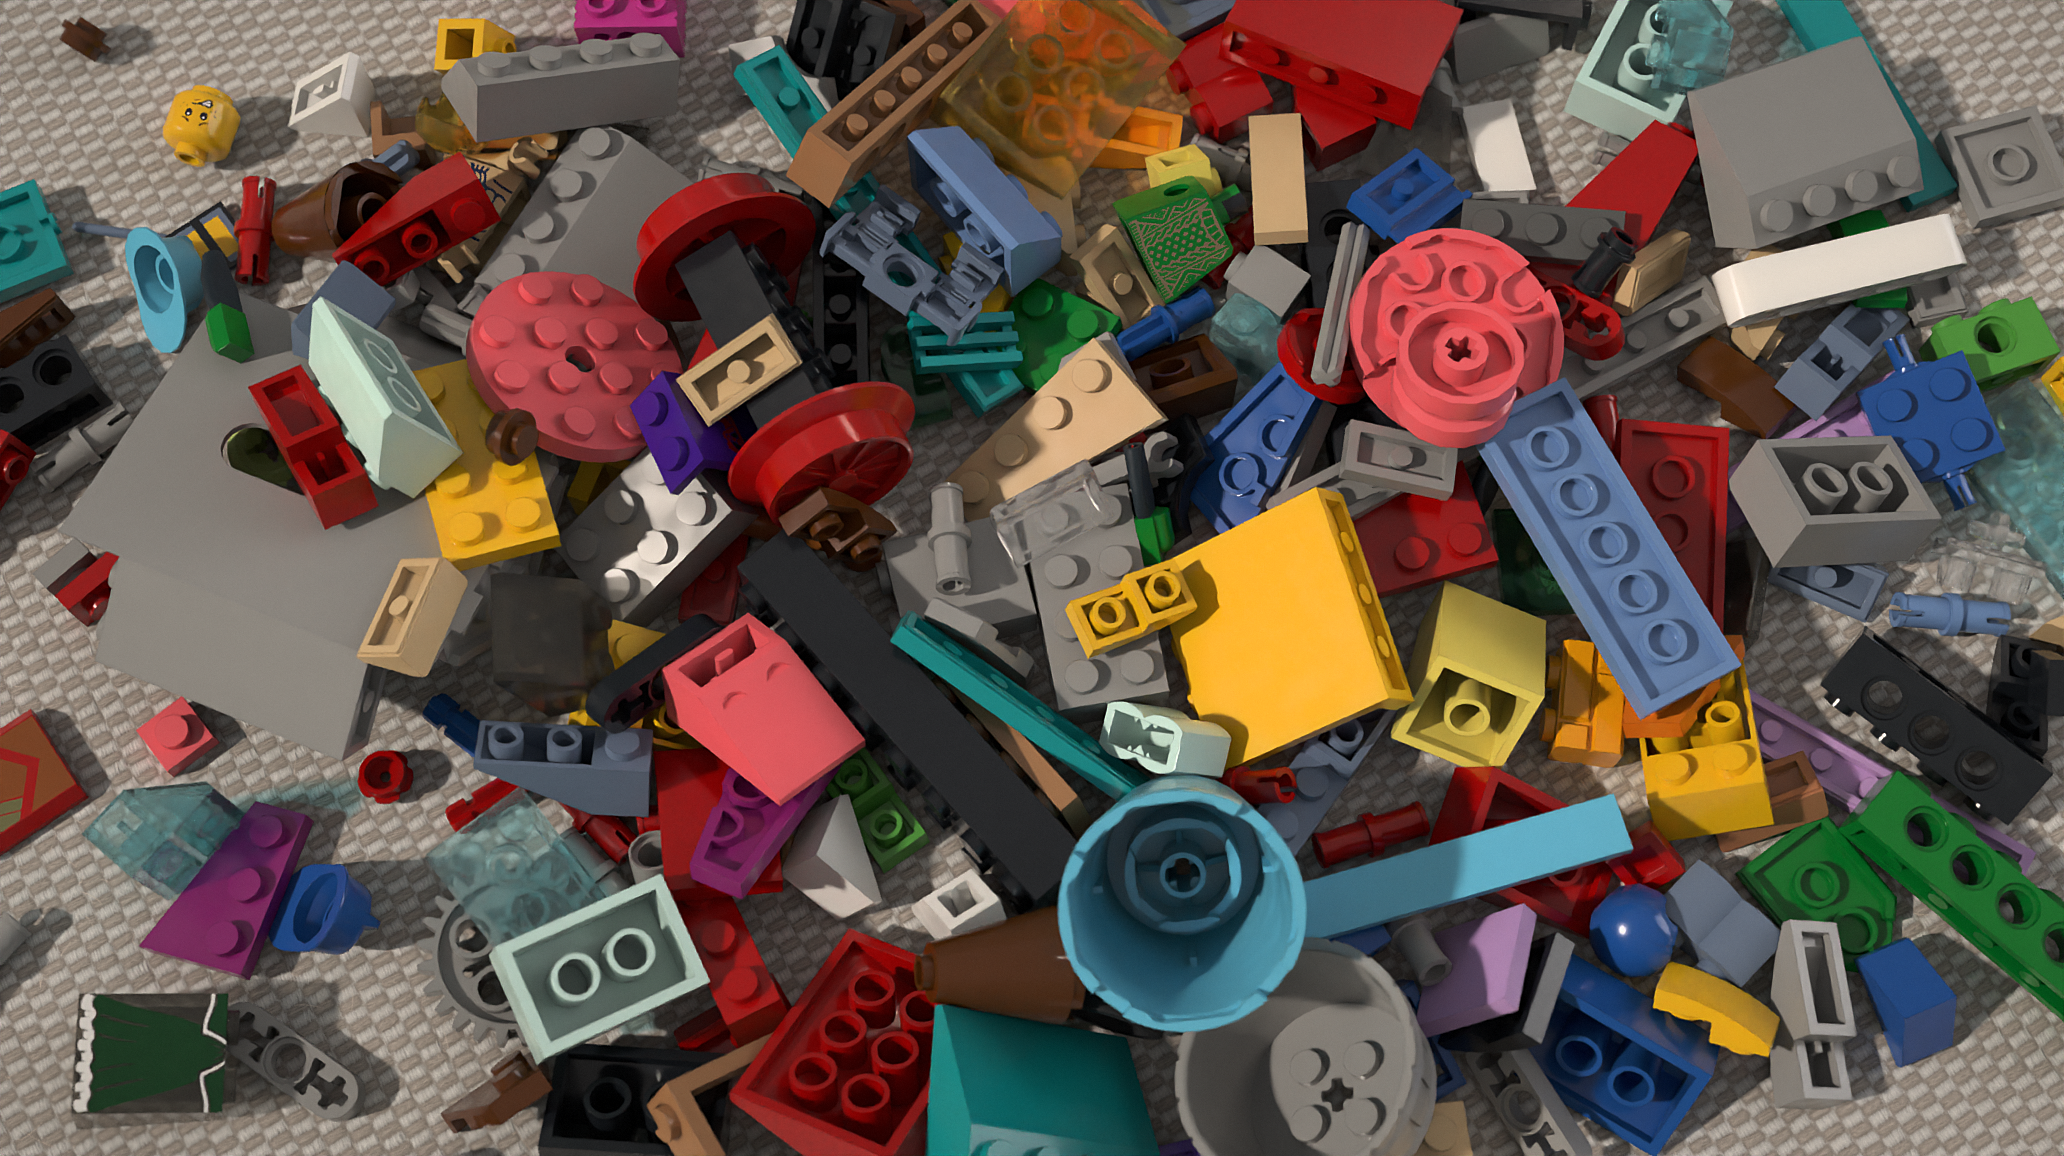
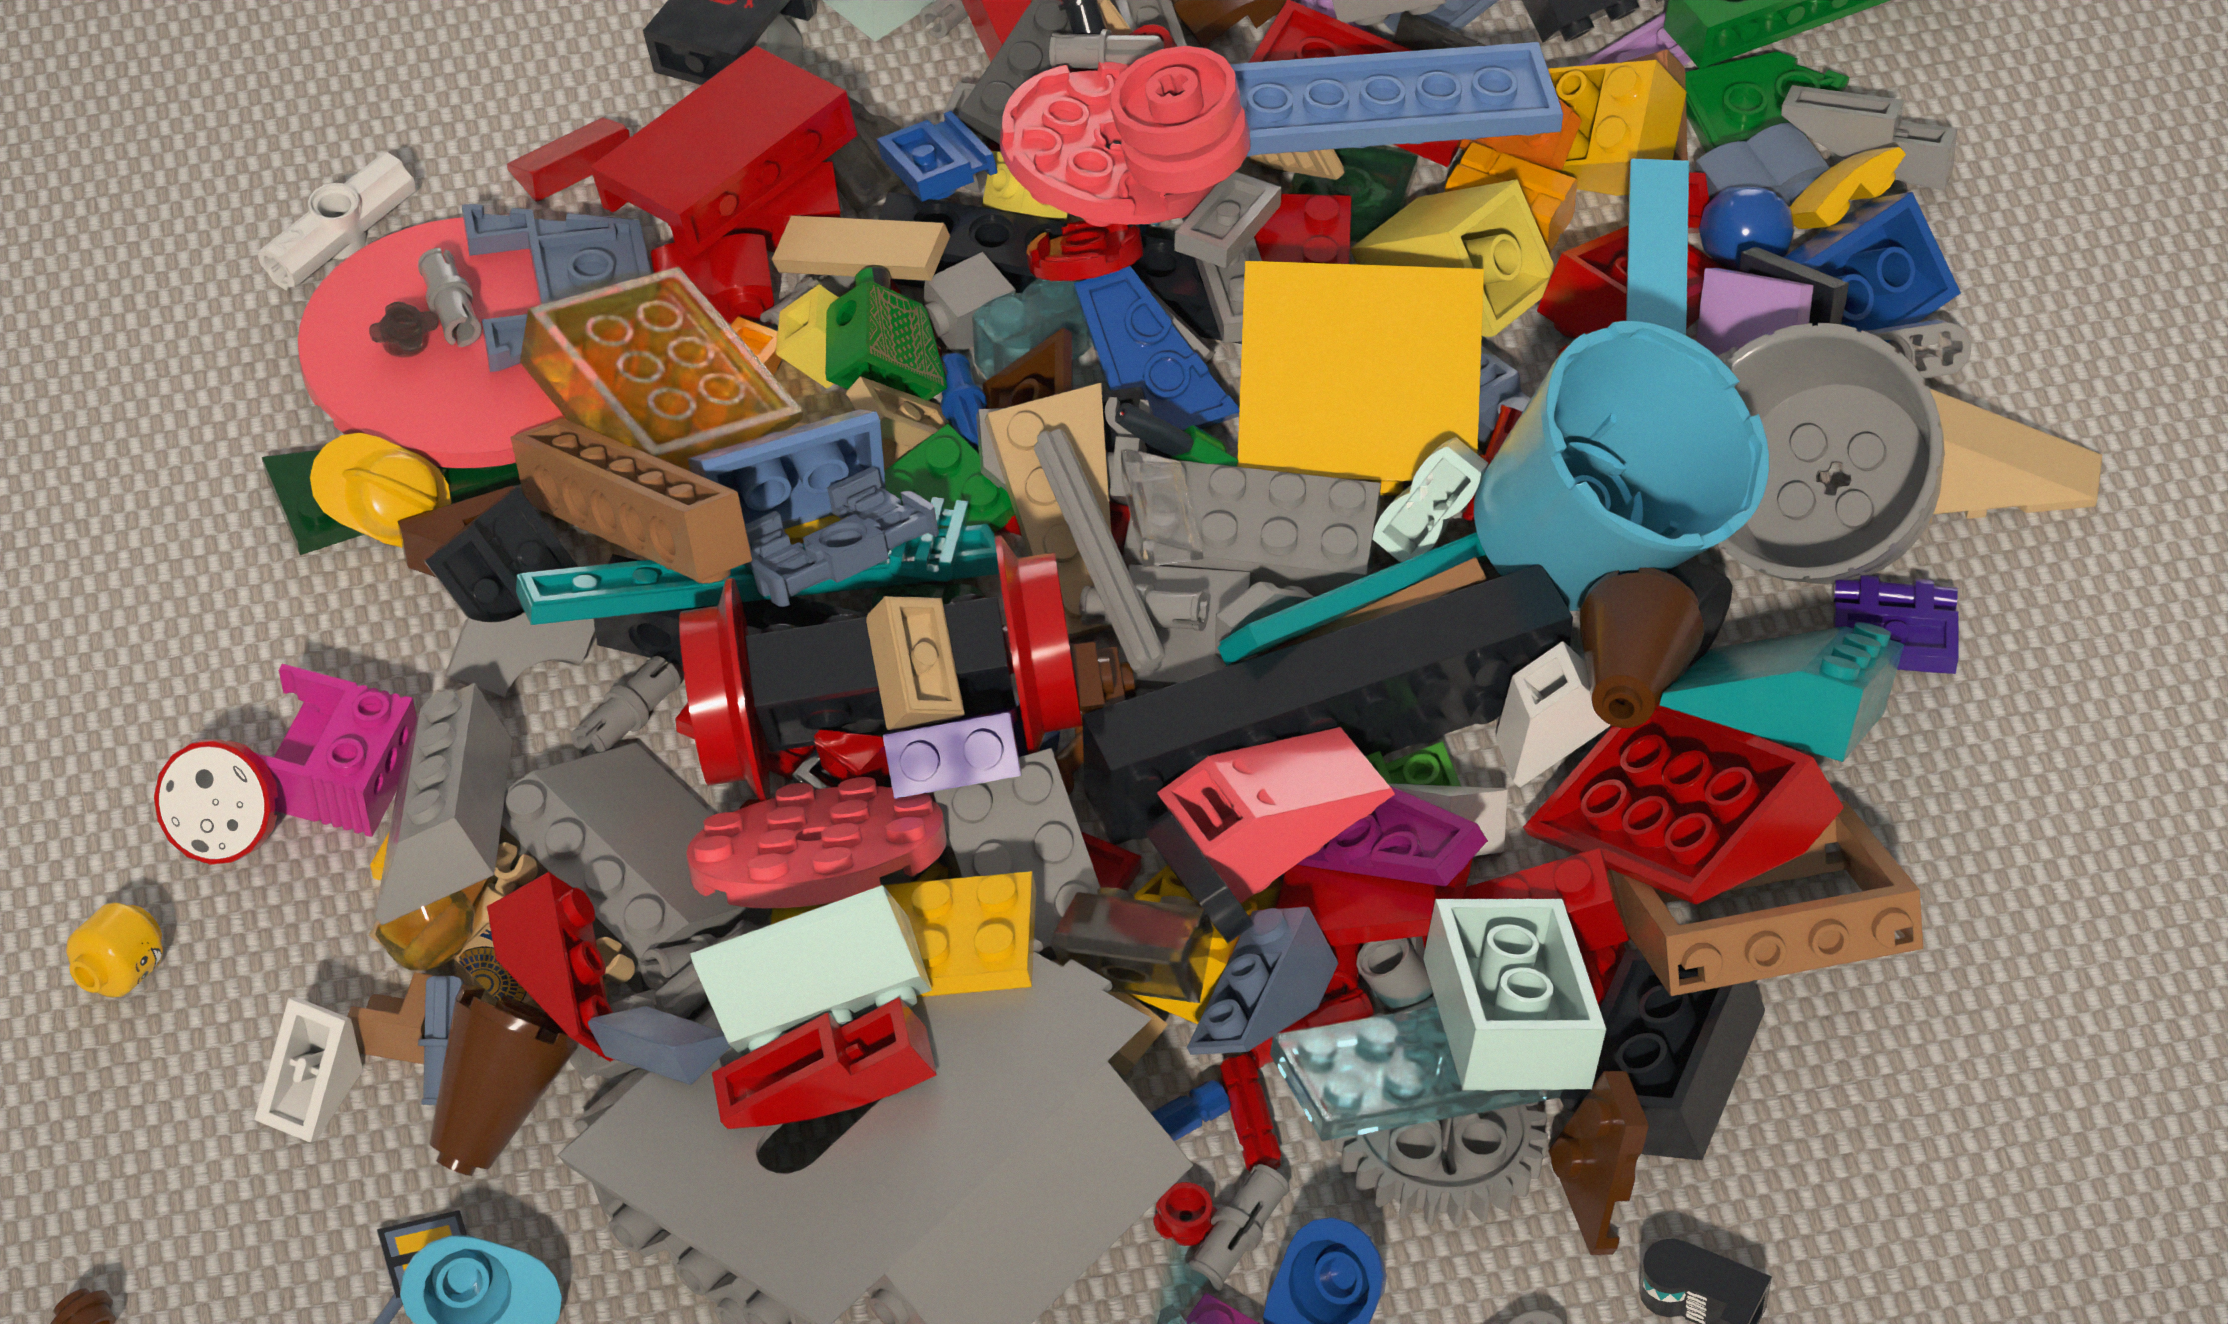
camera: 70 degrees left, 20 degrees down
(201, 125) = (277, 1209): yellow head -> none
(225, 319) = (621, 1143): piece -> none
(255, 231) = (441, 1193): red pin -> none
(379, 819) = (1236, 1228): none -> light grey pin
(414, 616) = (1073, 1013): tan slope -> none
(469, 39) = (332, 905): yellow brick -> none
(512, 436) = (909, 867): reddish brown plate -> none
(974, 478) = (1099, 551): none -> light grey axle
(1131, 609) = (1288, 474): yellow slope -> none
(1335, 324) = (1038, 218): light grey axle -> none
(1496, 147) = (899, 97): white tile -> none
(1569, 291) = (1089, 50): none -> light grey axle
(1909, 1000) = (1877, 63): blue slope -> none

